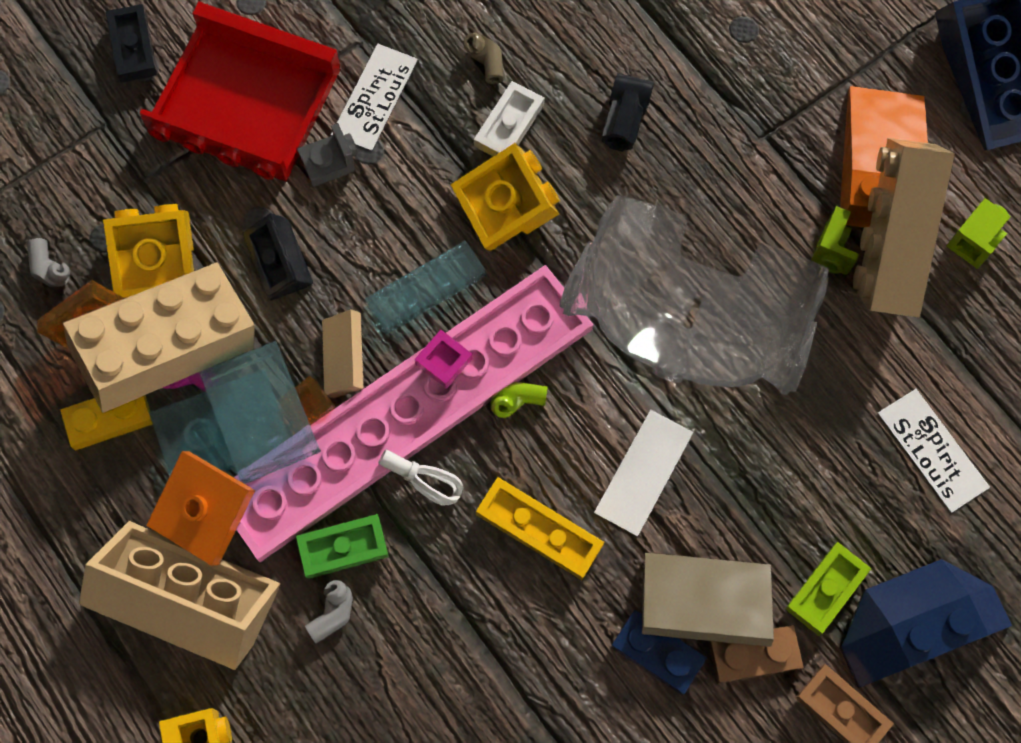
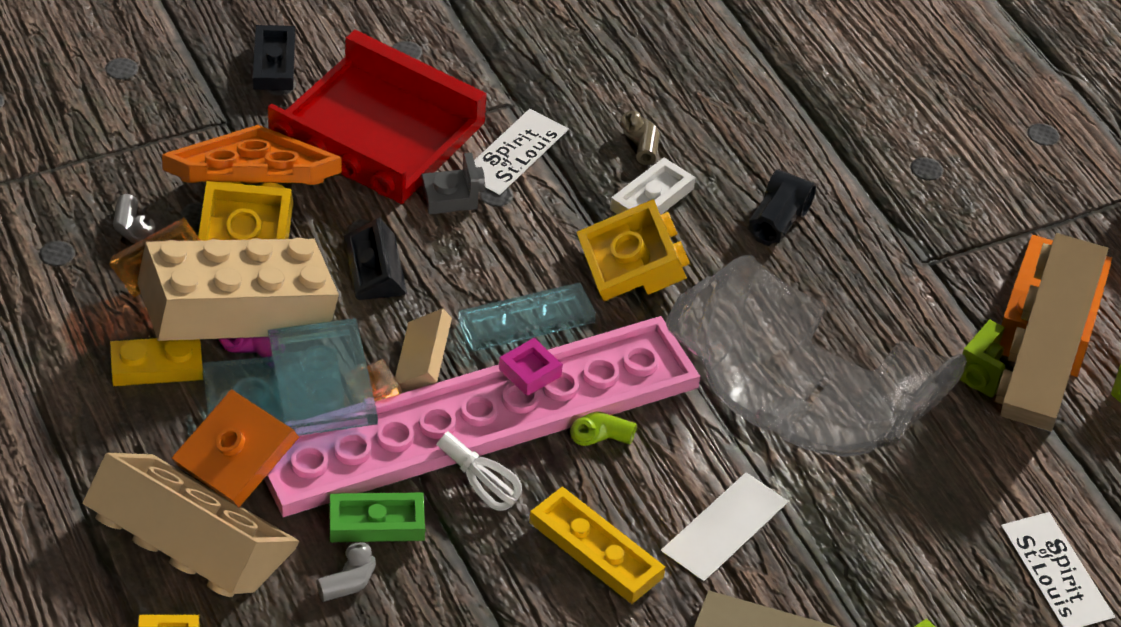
camera: 10 degrees right, 25 degrees down
(139, 175) = (252, 158): none -> orange plate

